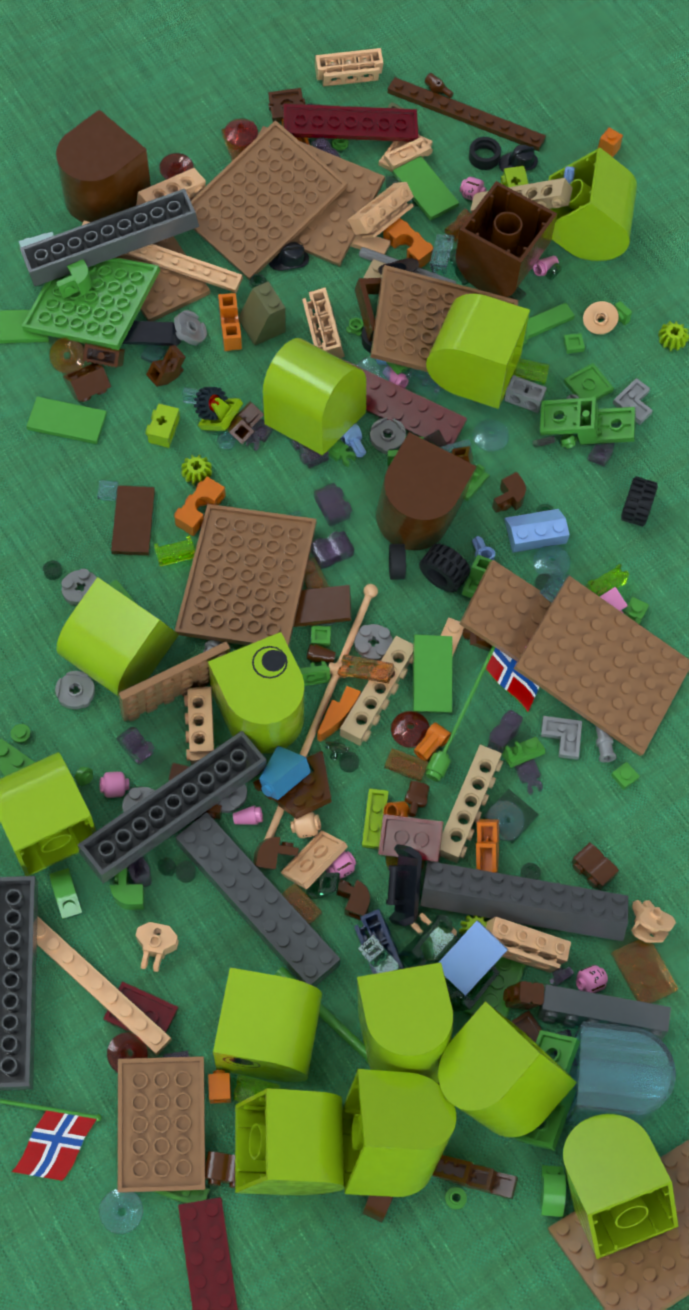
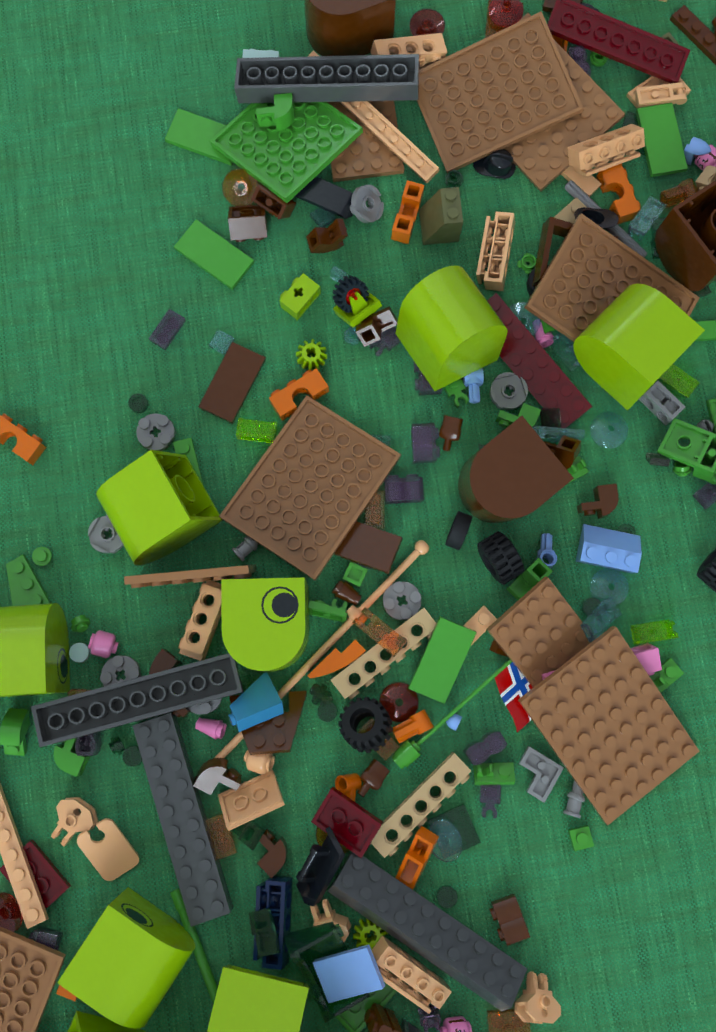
camera: 25 degrees right, 15 degrees up
(52, 497) = (167, 329): none -> plate
(94, 802) = (79, 652): none -> light aqua tile
(135, 745) = (137, 614): brick -> none
(206, 959) = (110, 855): none -> light nougat piece
(343, 864) = (276, 817): bright pink head -> none
(351, 485) = (450, 430): none -> reddish brown piece
(373, 820) = (325, 779): lime plate -> none
(395, 763) = (372, 738): none -> black tyre
(458, 182) = (696, 147): none -> light blue plate
(467, 723) = (454, 721): none -> light blue hinge

